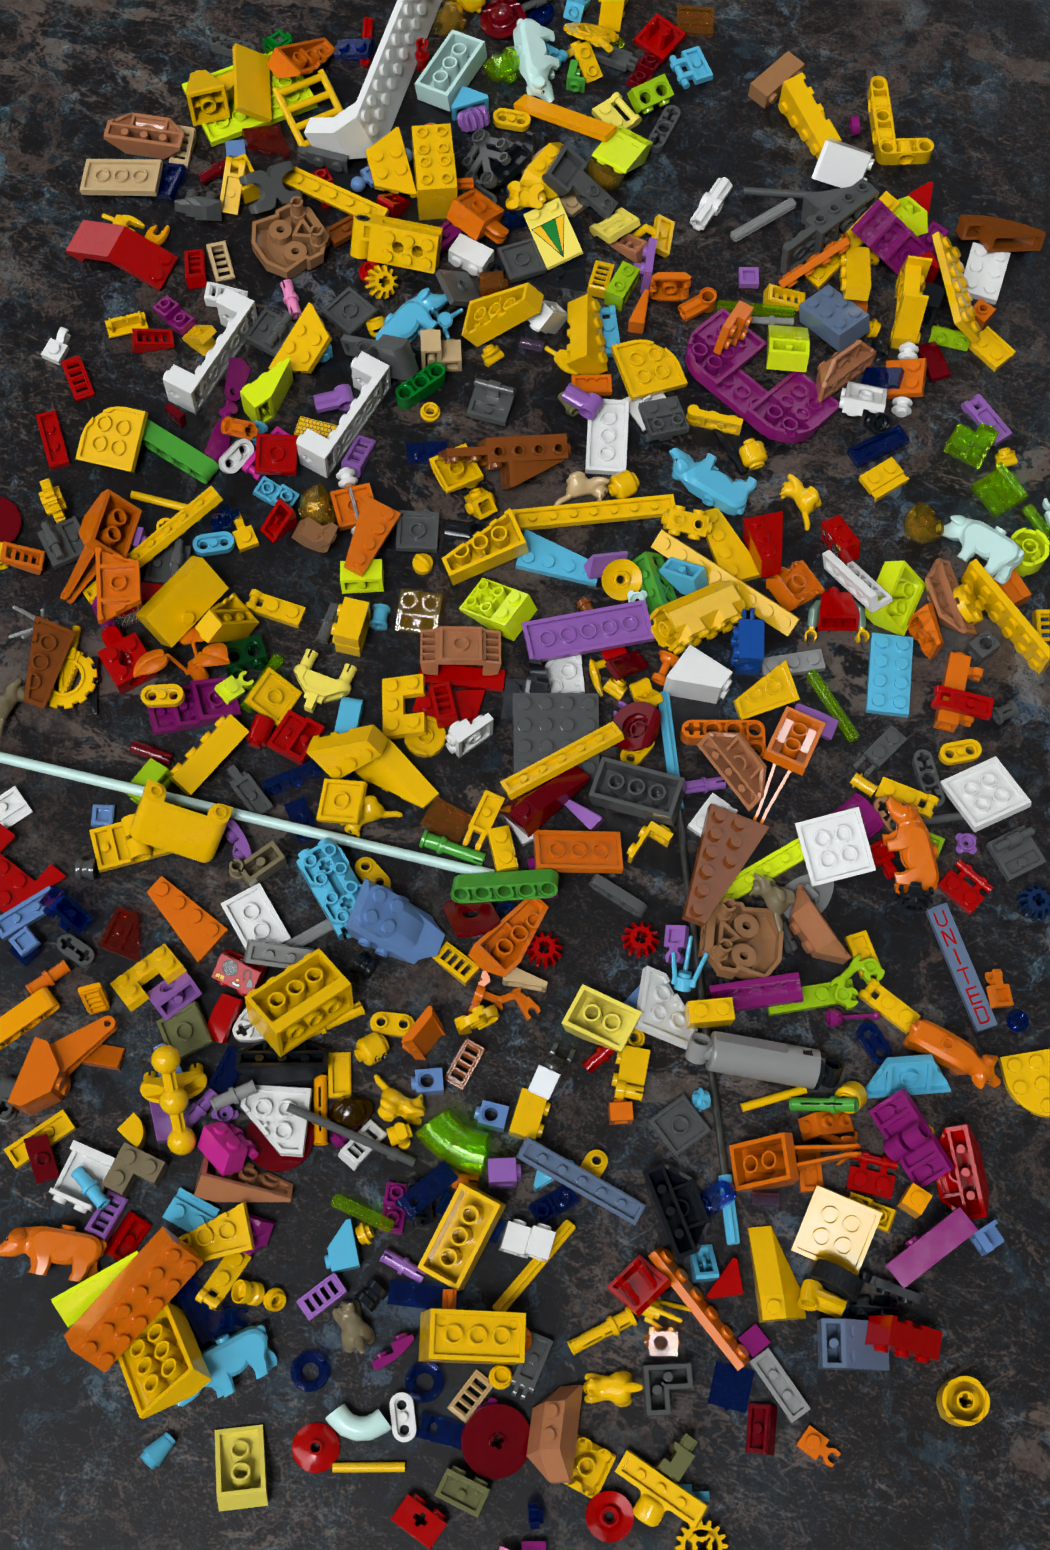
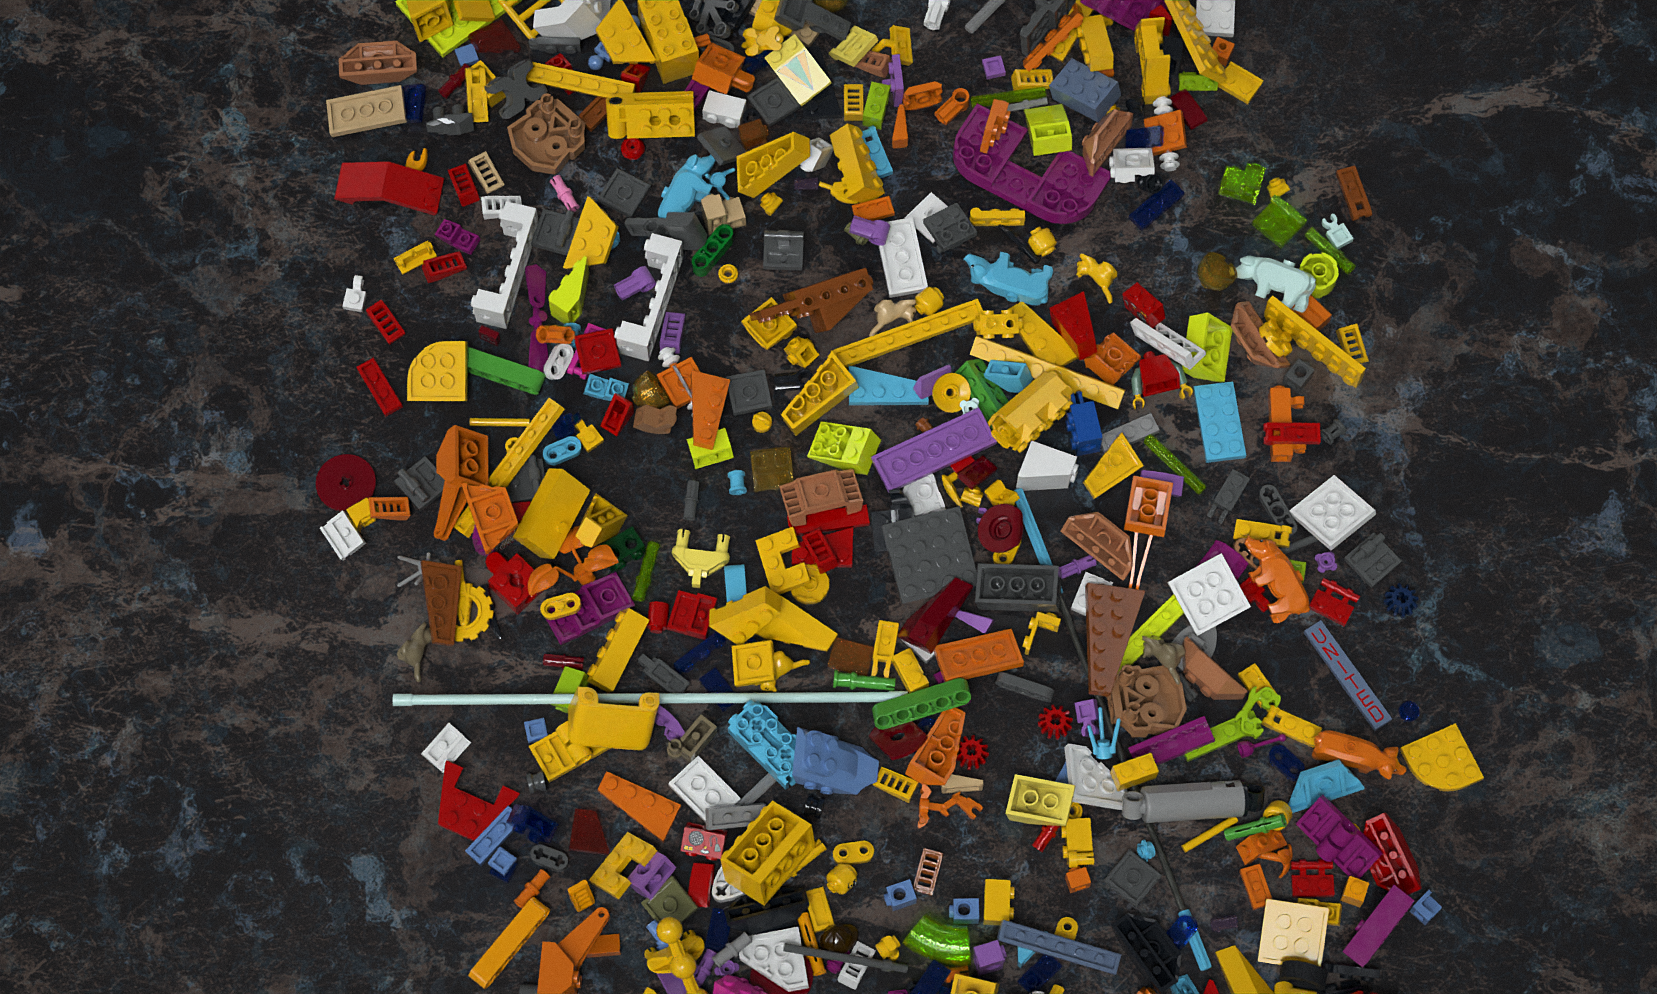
camera: 10 degrees left, 0 degrees up
(52, 500) = (401, 447): yellow gear -> none
(125, 220) = (380, 154): yellow hand -> none
(139, 537) = (492, 463): medium lavender plate -> none
(189, 137) = (420, 55): tan slope -> none
(201, 338) = (490, 253): yellow slope -> none
(232, 688) = (621, 582): neon yellow plate -> none
(272, 696) = (660, 581): yellow plate -> none
(275, 609) = (638, 498): yellow plate -> none
(319, 427) = (617, 315): yellow tile -> none
(351, 627) = (714, 498): yellow piece -> none
(374, 873) = (798, 721): yellow plate -> none
(375, 323) = (653, 199): yellow tile -> none
(387, 278) = (653, 160): yellow gear -> none
(396, 1104) = (876, 921): yellow animal -> none
(422, 451) = (734, 313): clear blue plate -> none
(423, 1034) = (884, 854): orange slope -> none
(465, 736) = (848, 574): white plate -> none
(480, 1018) = (932, 826): yellow plate -> none
(550, 1073) = (1009, 859): hinge -> none
(562, 760) = (943, 576): yellow plate -> none
(647, 368) = (921, 181): yellow plate -> none
(668, 660) = (1014, 459): orange piece -> none
(740, 726) = (1097, 504): orange beam -> none
(772, 1161) = (1223, 889): orange slope -> none
(863, 784) = (1220, 530): yellow pin -> none
(874, 327) = (1125, 89): yellow plate -> none
(883, 479) = (1169, 235): yellow plate -> none
(914, 900) = (1291, 624): black piece -> none
(925, 629) = (1241, 371): orange slope -> none
(958, 752) = (1299, 478): yellow plate -> none
(987, 416) = (1250, 152): medium lavender plate -> none
(998, 992) = (1385, 690): orange plate -> none

